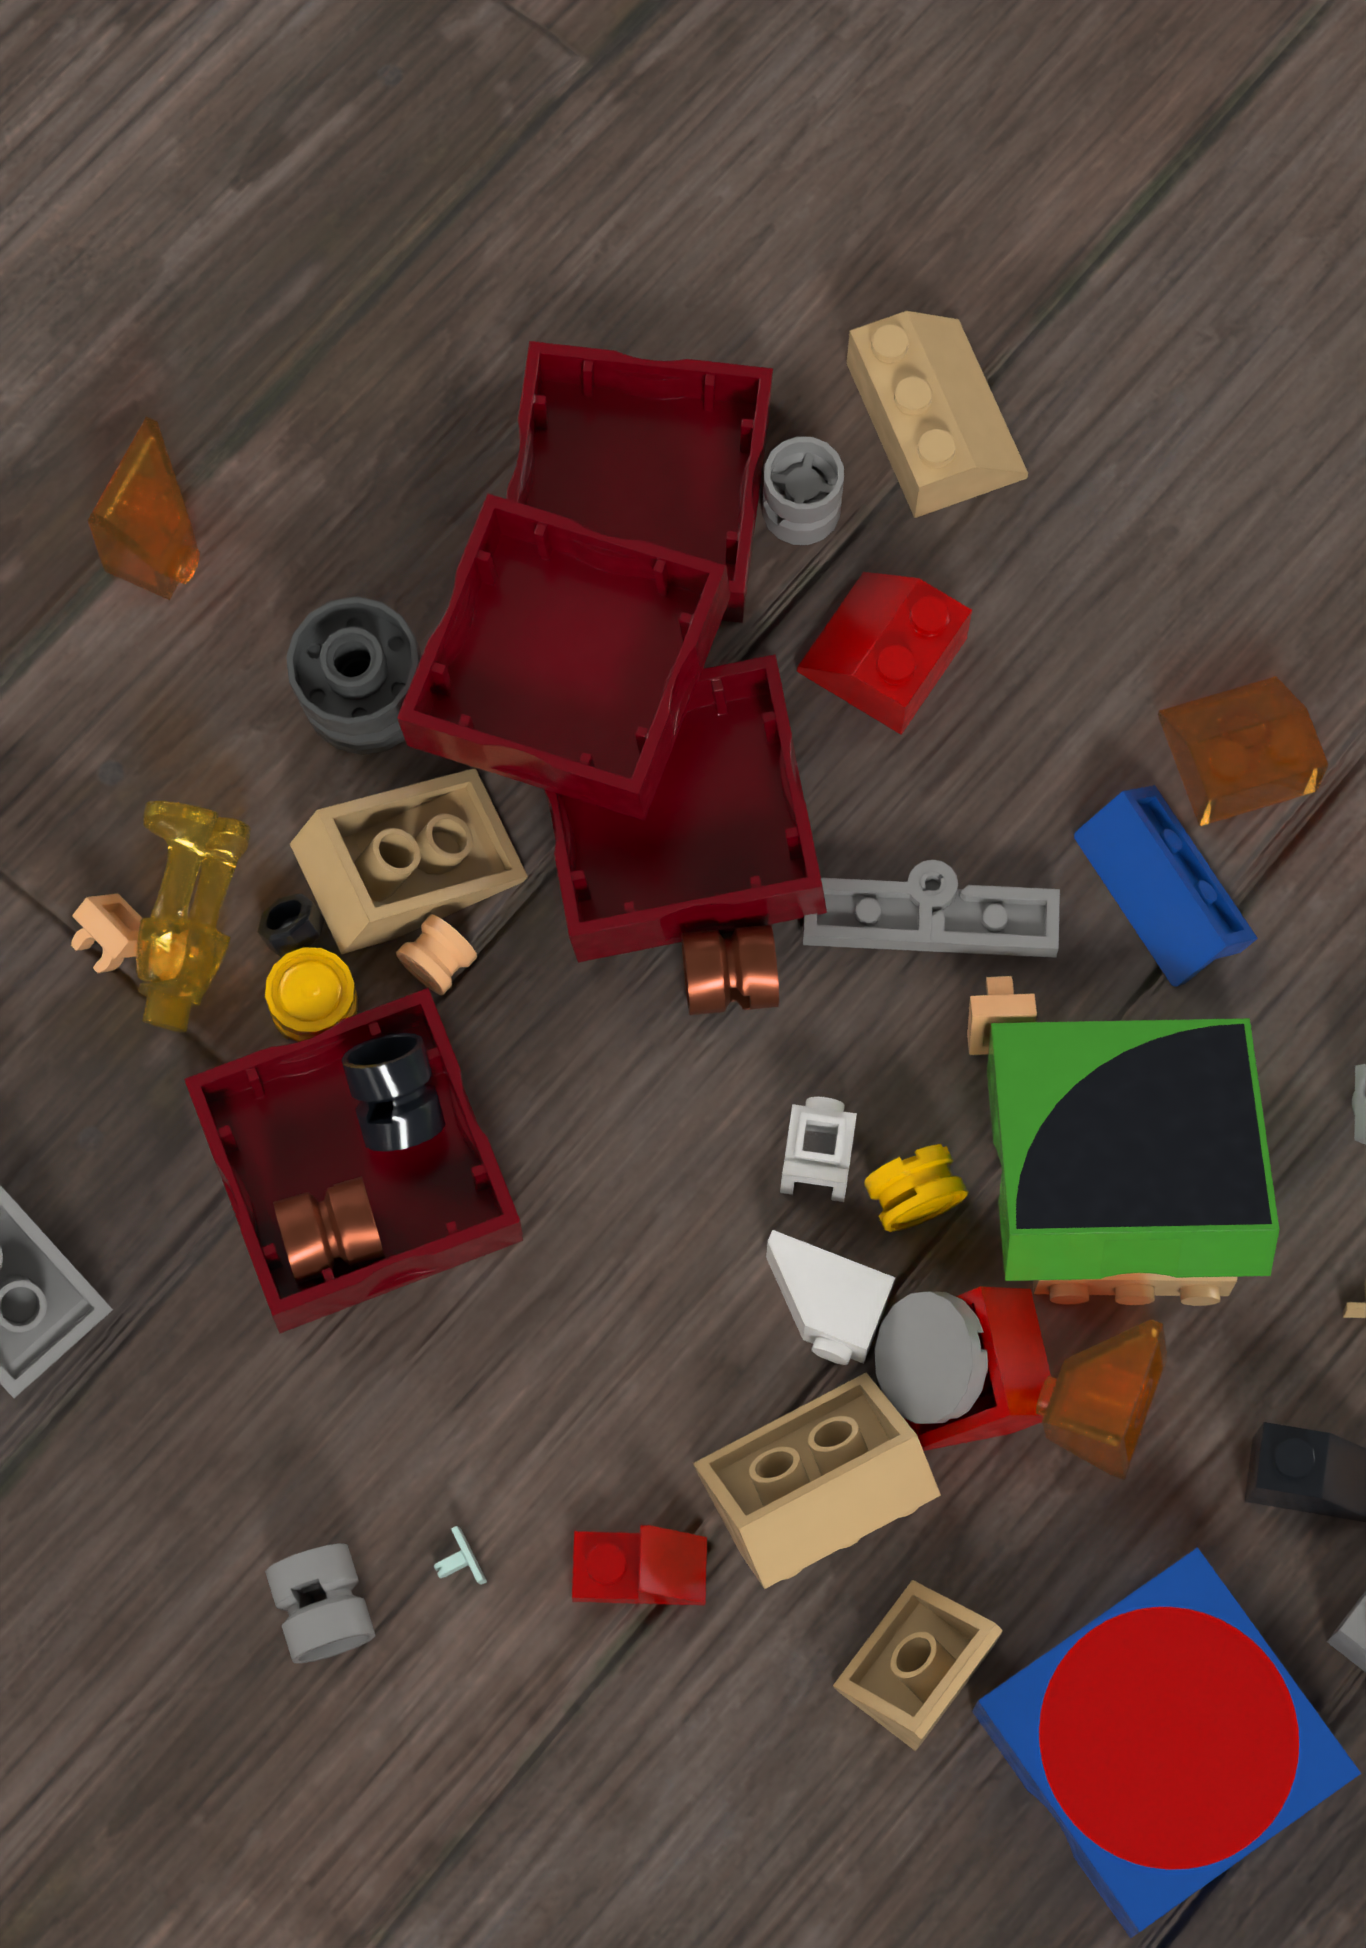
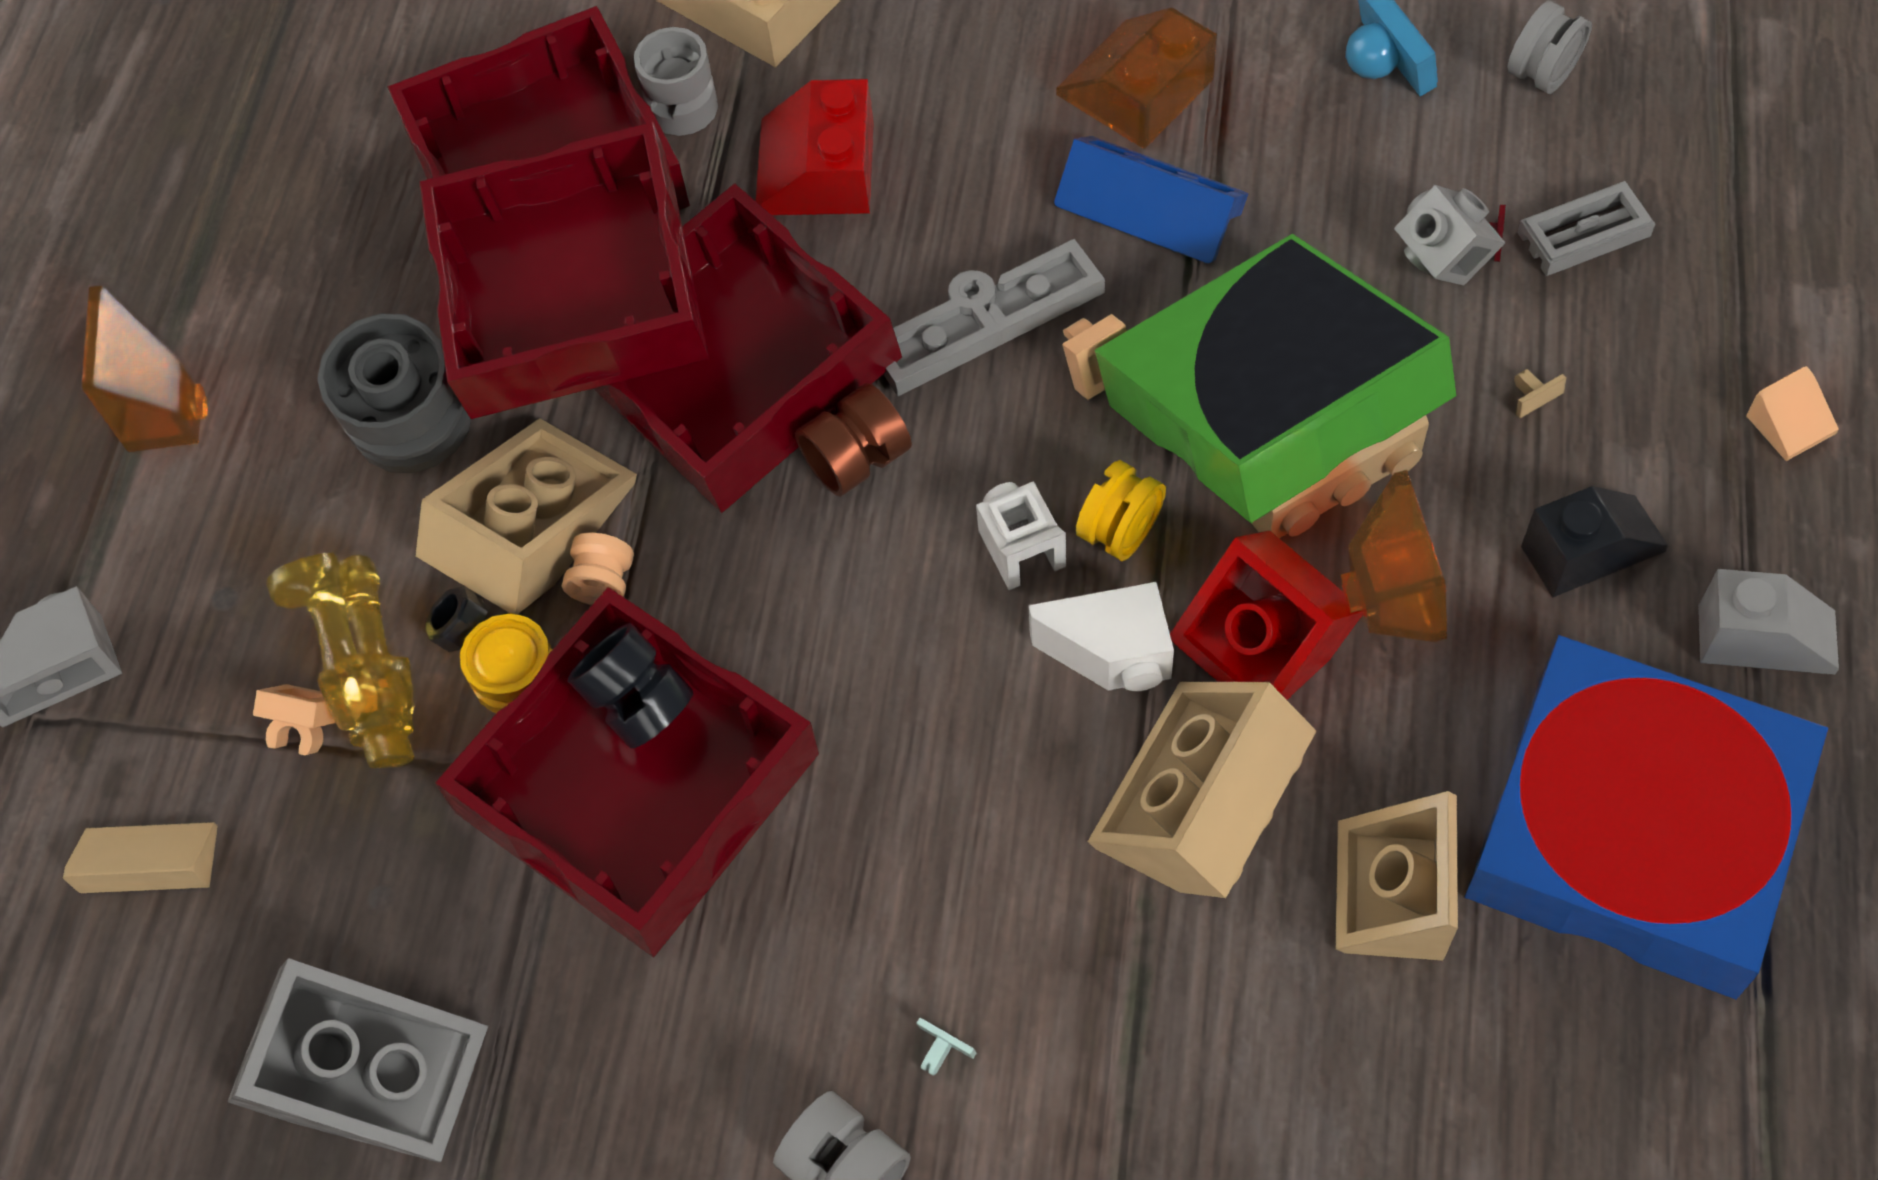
camera: 25 degrees left, 10 degrees down
(328, 1229) = (649, 829): copper wheel -> none
(640, 1567) = (1102, 955): red slope -> none
(931, 1357) = (1231, 623): light grey tile -> none

